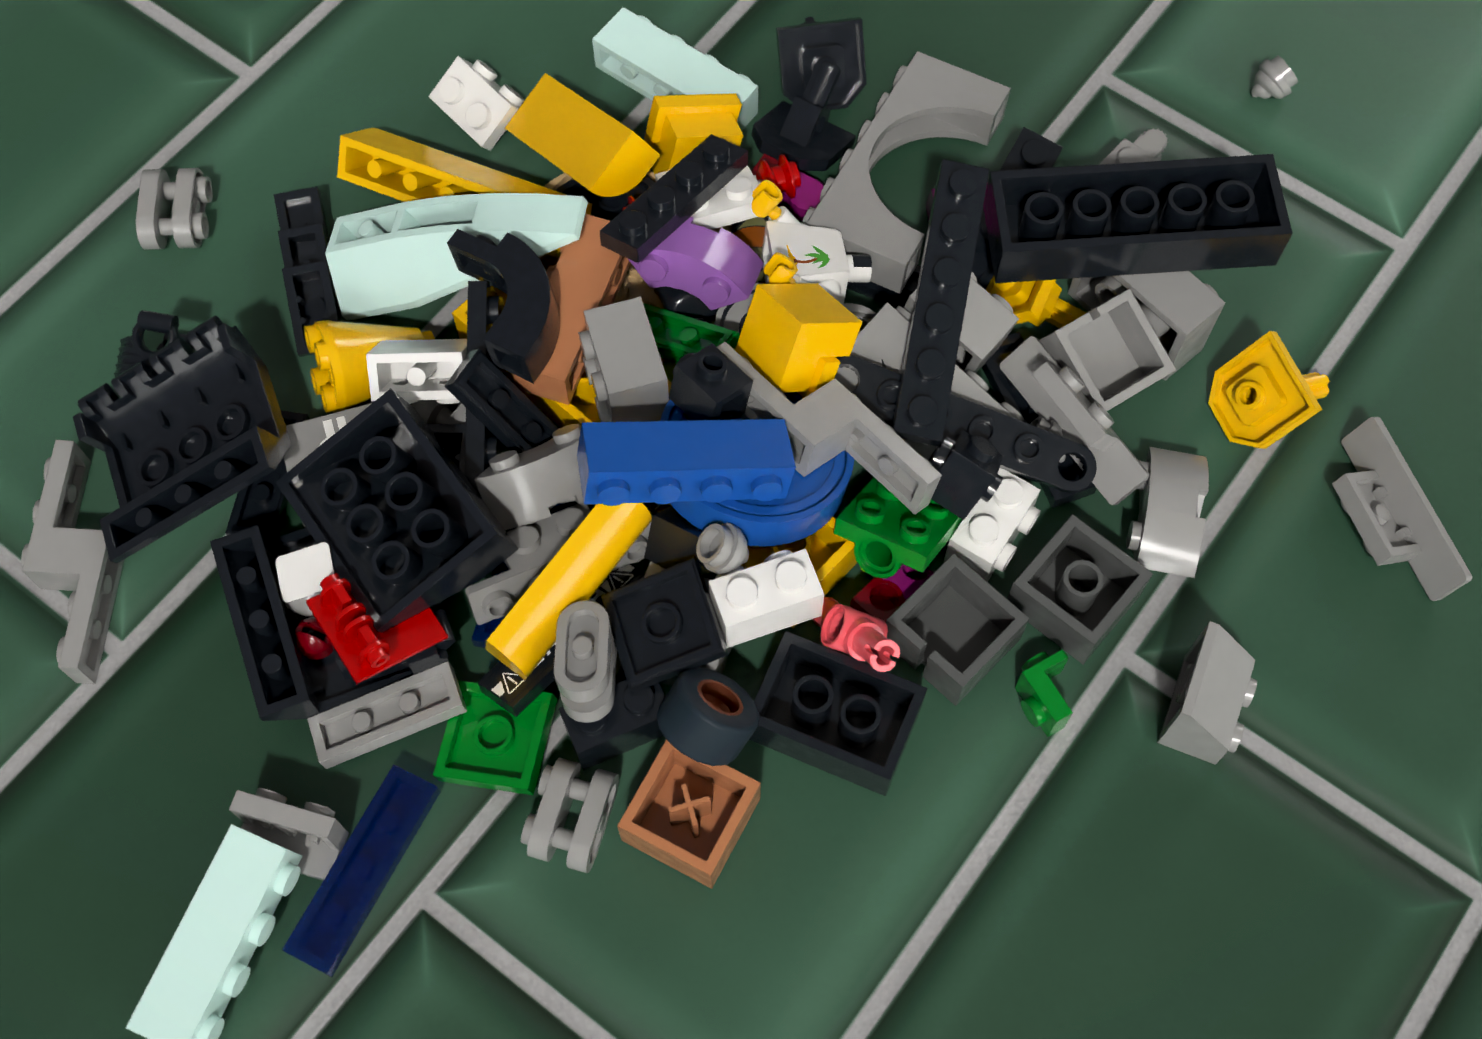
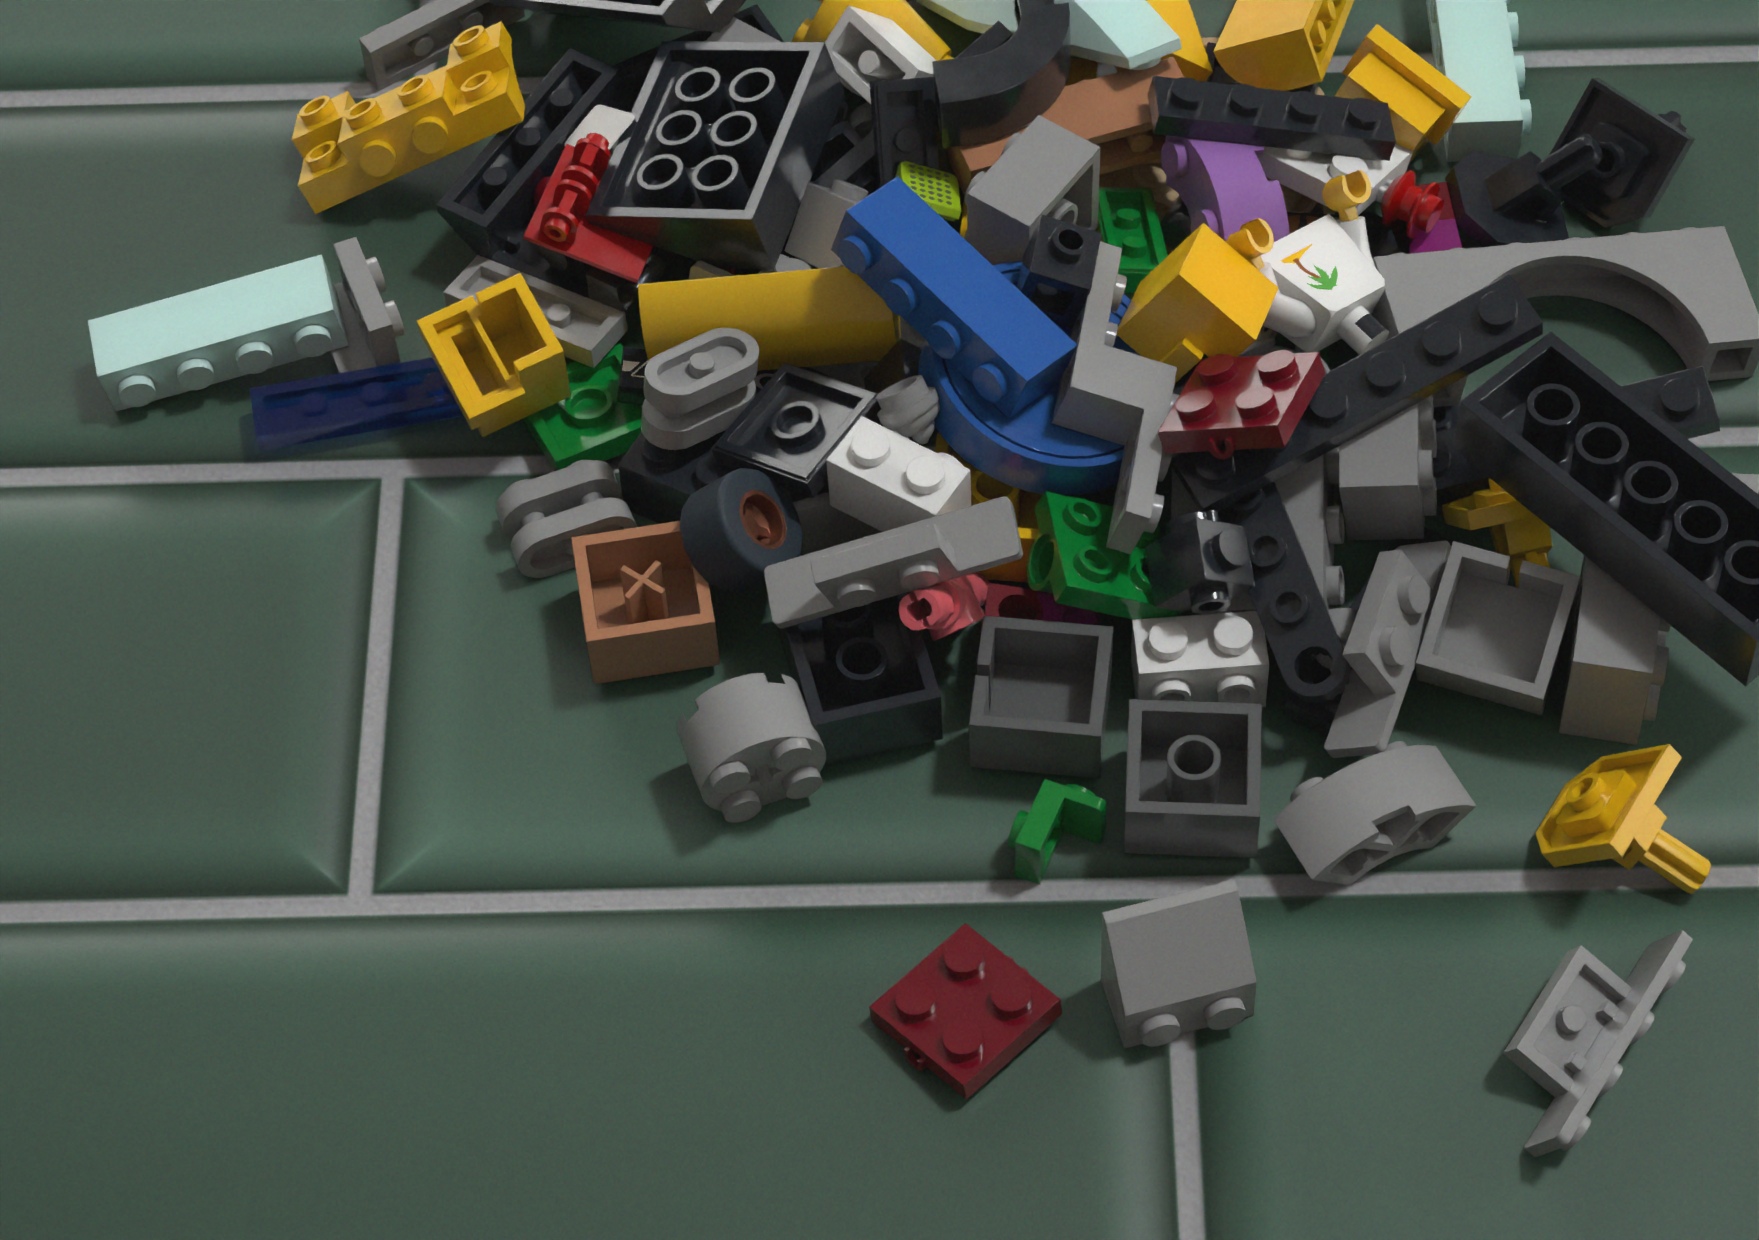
camera: 55 degrees right, 10 degrees down
(167, 689) = (426, 118): none -> yellow bracket
(425, 768) = (497, 355): none -> yellow plate
(544, 419) = (934, 186): none -> lime slope
(829, 646) = (893, 562): none -> light grey bracket
(863, 826) = (752, 745): none -> light grey brick
(904, 363) = (1242, 401): none -> dark red plate
(1135, 838) = (965, 1011): none -> dark red plate

